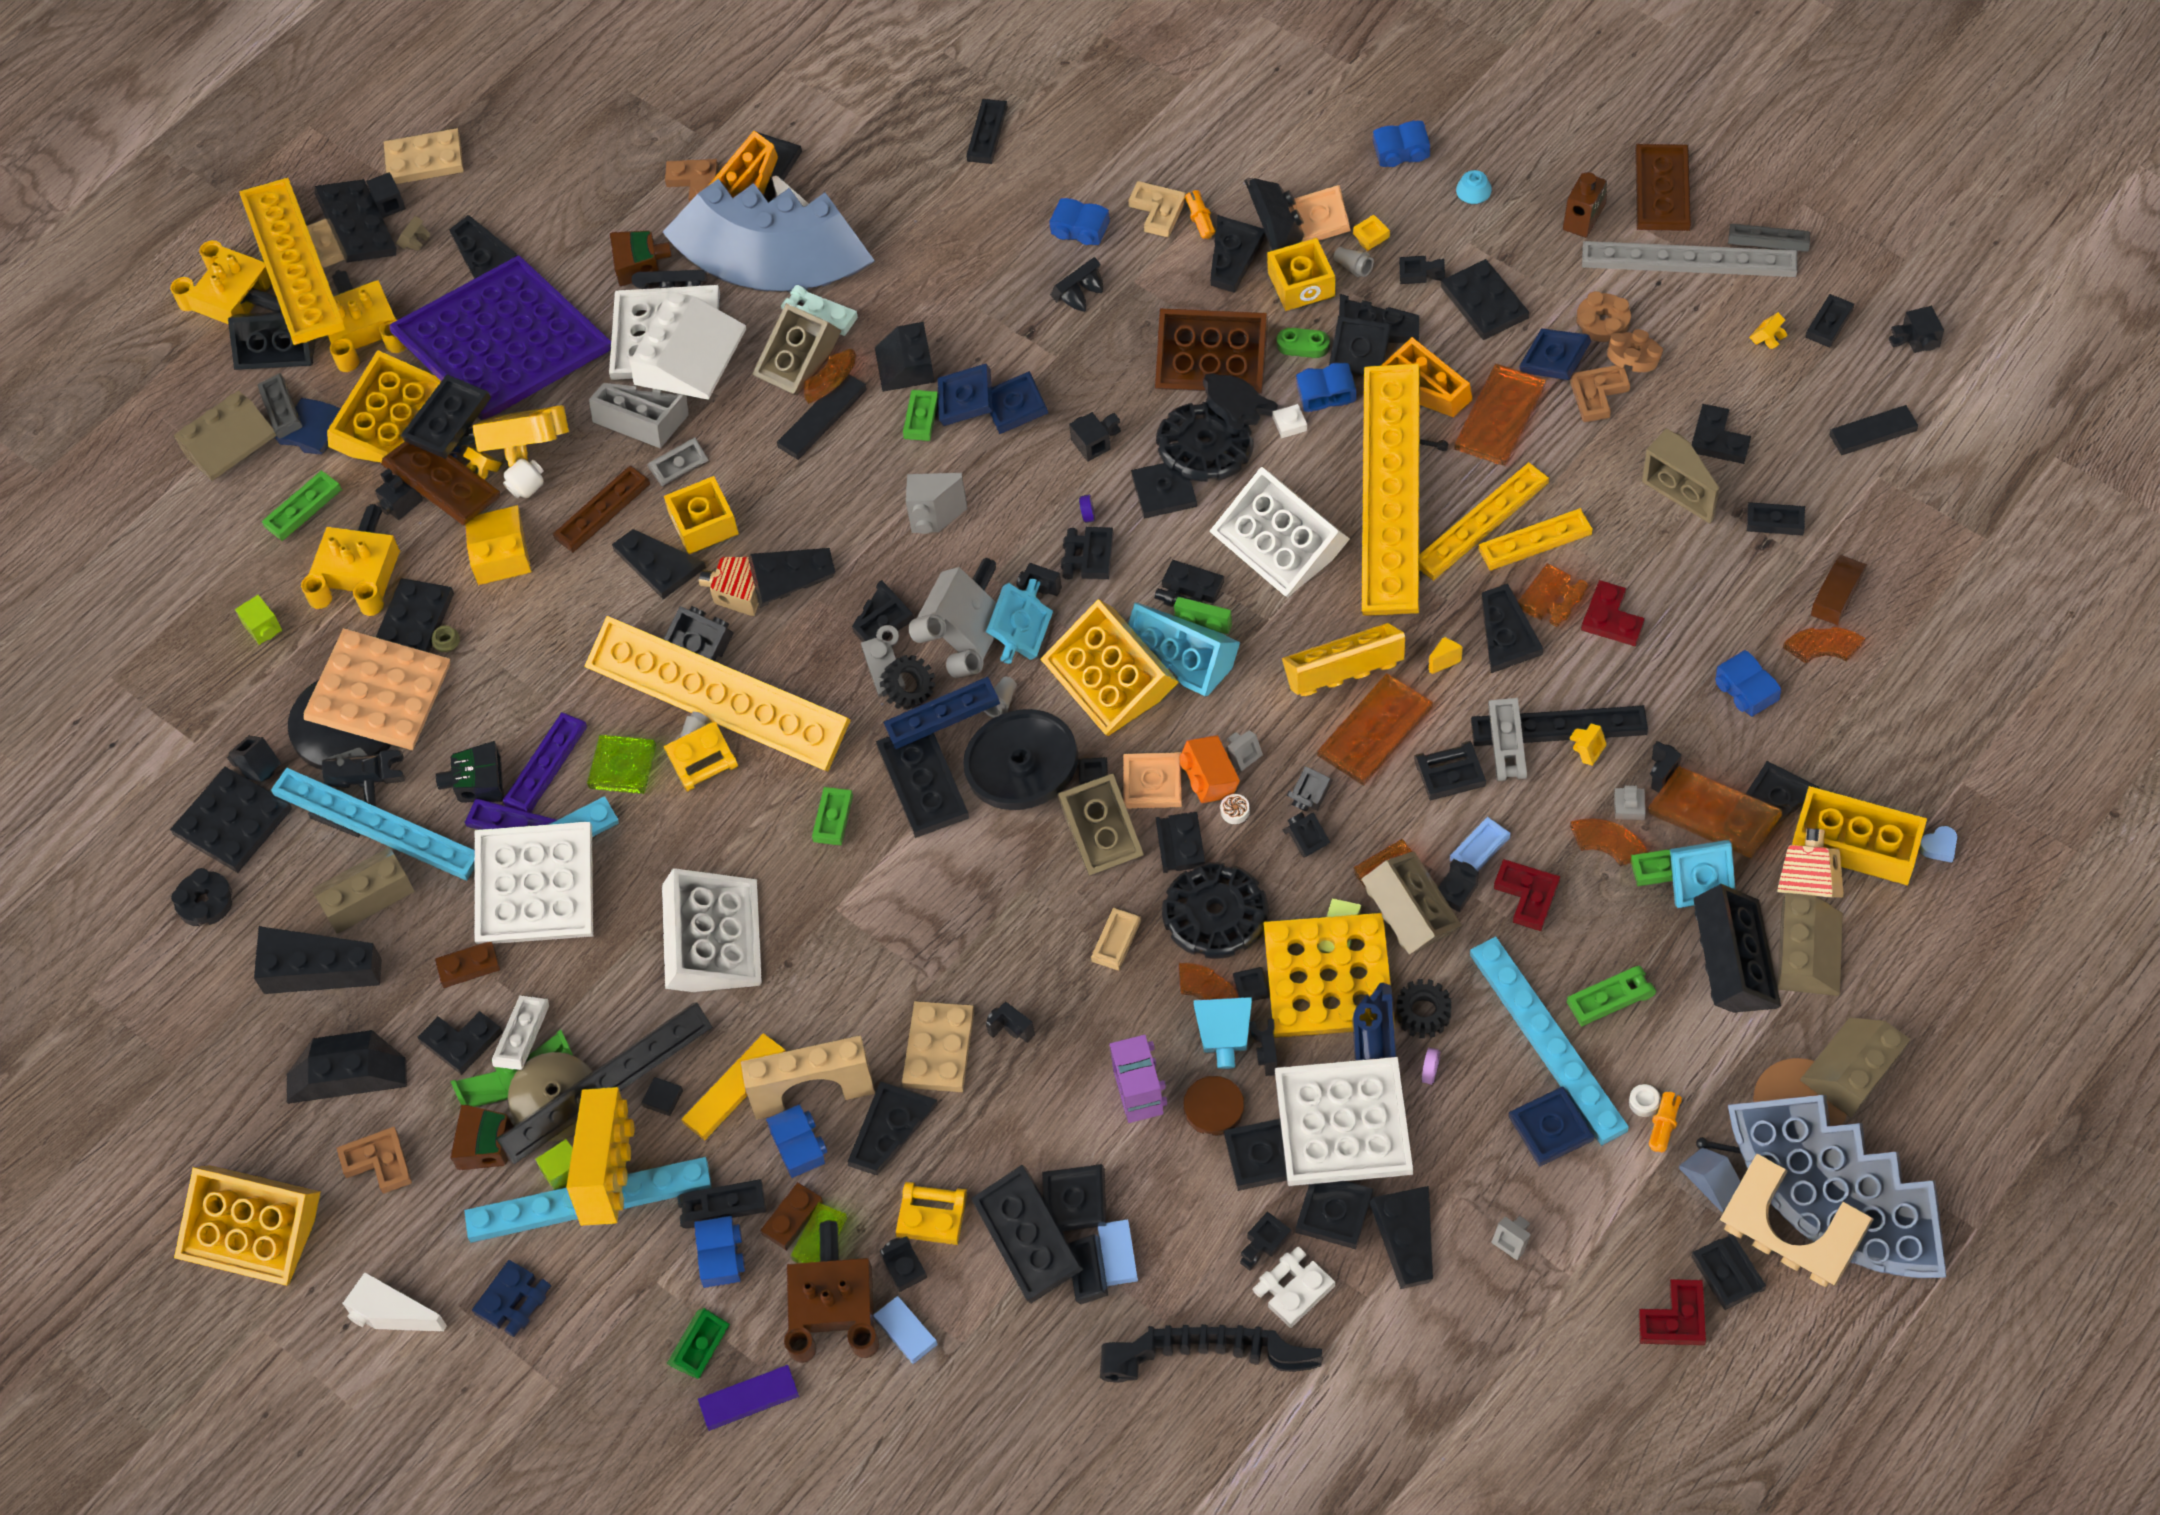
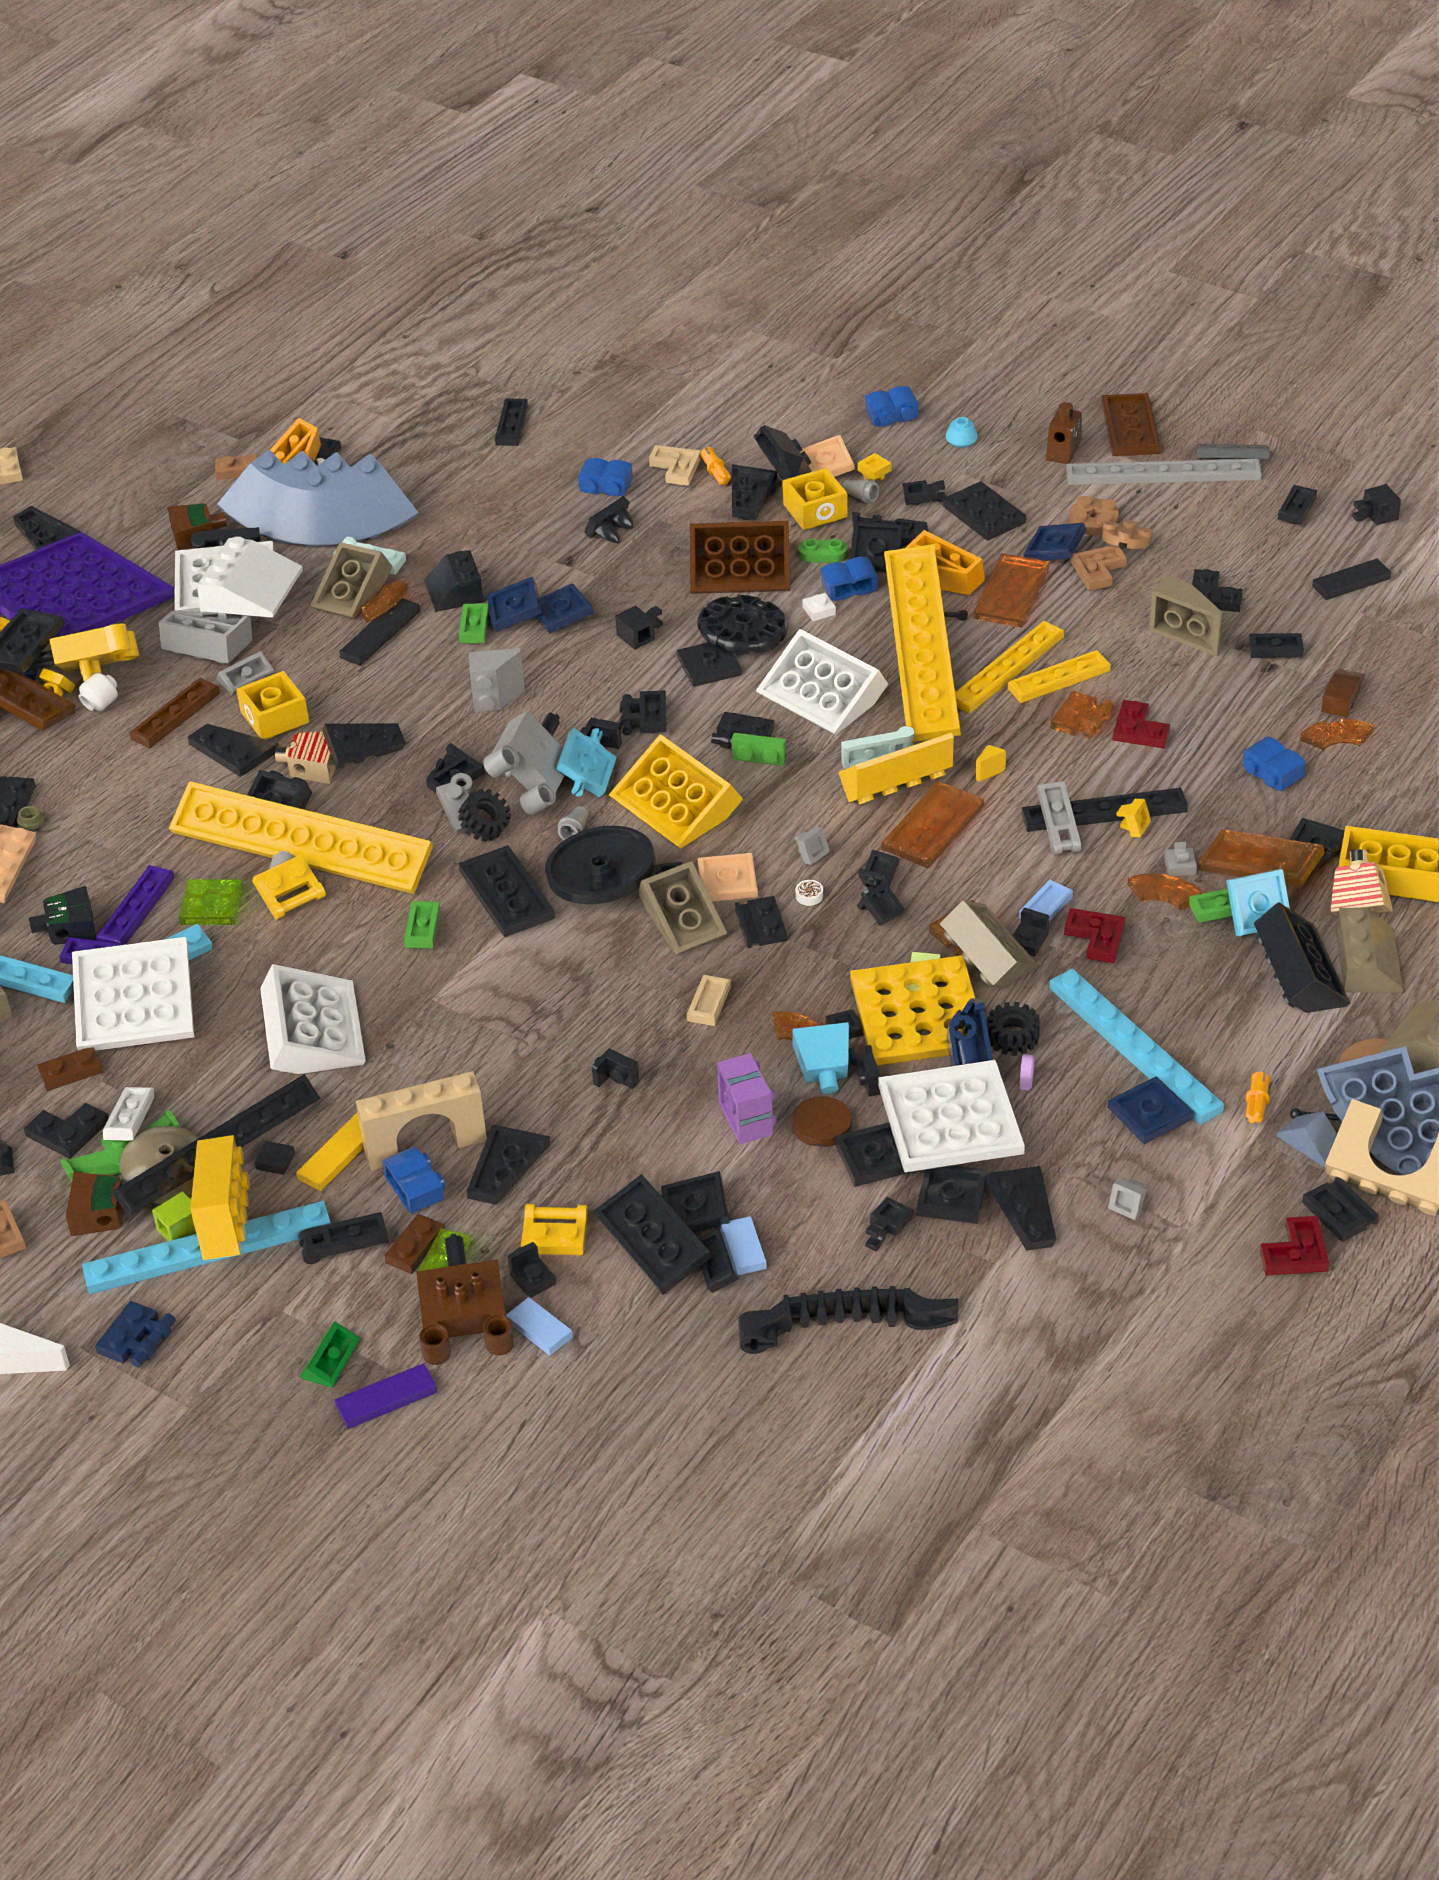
camera: 10 degrees left, 15 degrees down
(497, 545) = (77, 746): yellow slope -> none
(718, 1251) = (344, 1275): blue brick -> none
(938, 1046) = (546, 1096): tan plate -> none
(941, 712) = (520, 832): dark blue plate -> none
(1087, 508) = (639, 679): dark purple tile -> none
(1189, 650) = (757, 777): medium azure wedge -> none
(1209, 769) = (781, 860): orange brick -> none
(1215, 926) = (796, 986): black plate -> none
(1236, 401) = (768, 592): black tile -> none
(1300, 1293) = (930, 1262): white plate -> none
(1329, 624) = (872, 747): none -> light aqua plate
(1452, 777) = (1009, 848): black plate -> none
(1507, 630) = (1045, 741): black wing -> none
(1610, 995) = (1188, 1005): bright green plate -> none
(1644, 1100) = (1235, 1084): white tile -> none
(1667, 762) = (1208, 826): black bracket -> none
(1768, 329) = (1246, 515): yellow tile -> none

